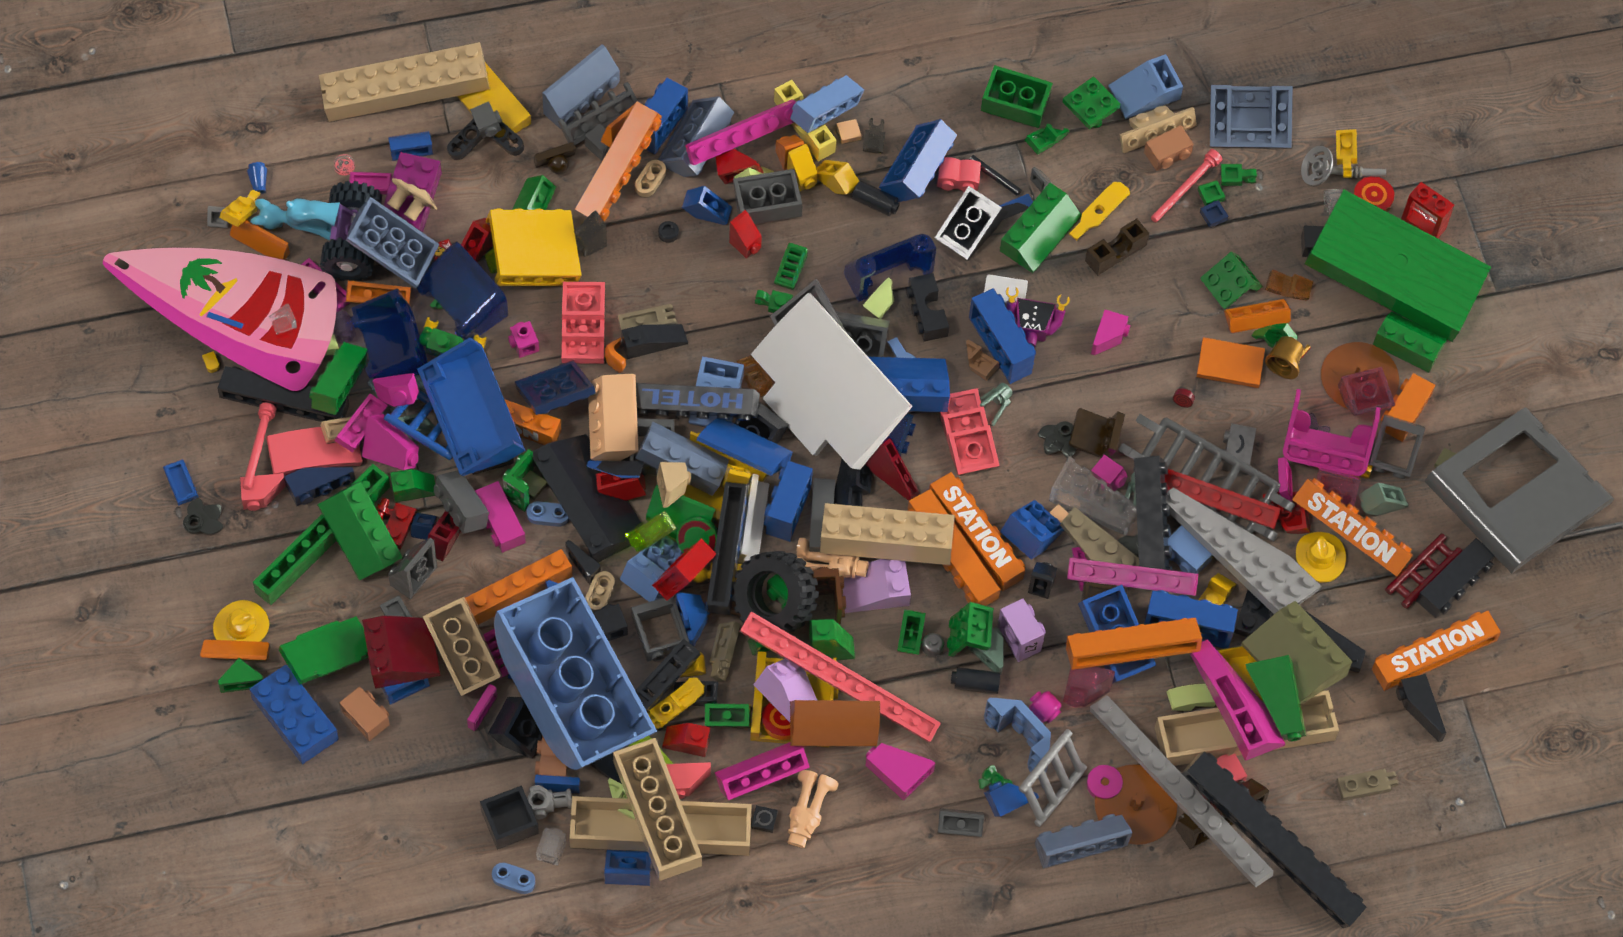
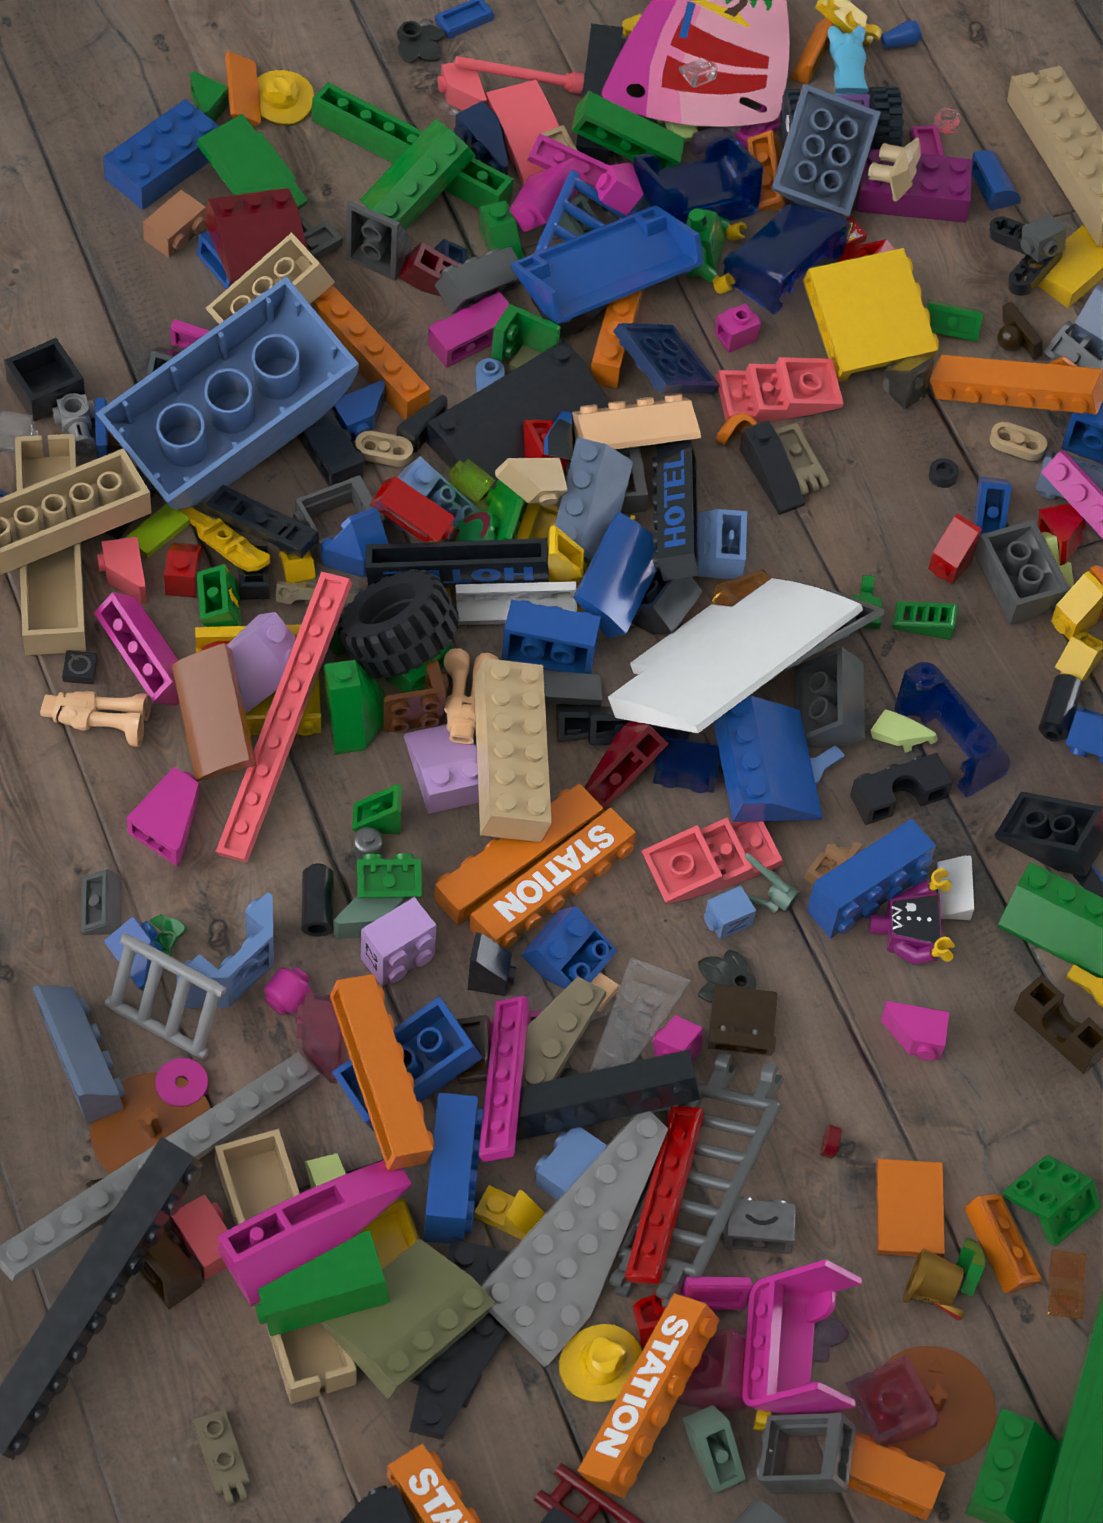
camera: 80 degrees right, 5 degrees down
(399, 520) = (434, 228): red plate -> none
(1012, 427) = (729, 912): none -> medium blue brick

